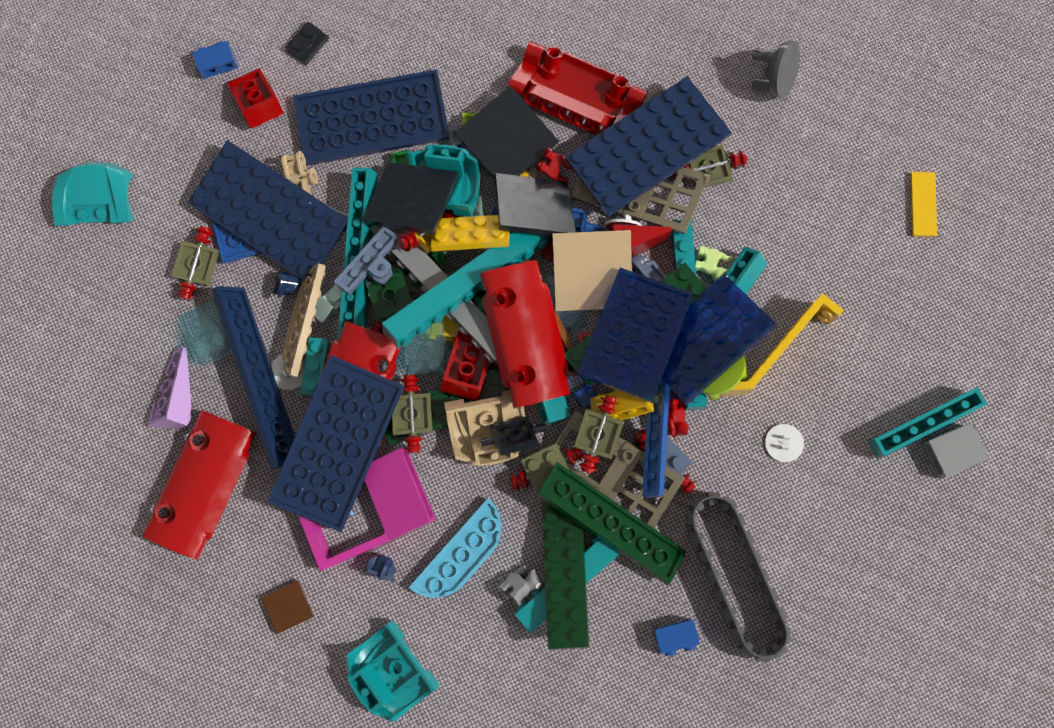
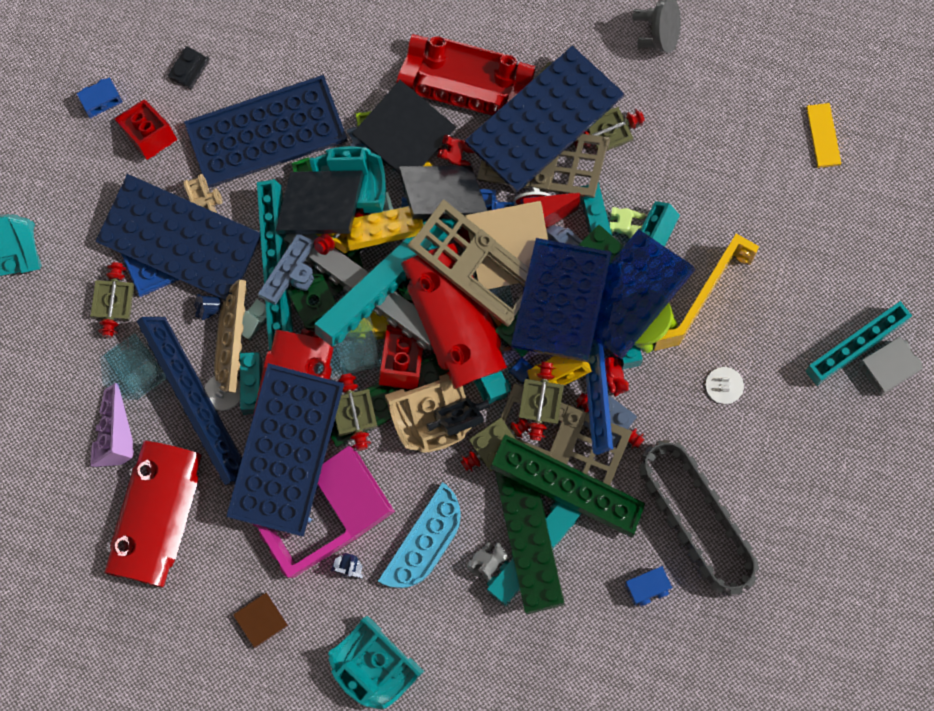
camera: 10 degrees left, 5 degrees down
(543, 287) = (470, 259): none -> dark tan door

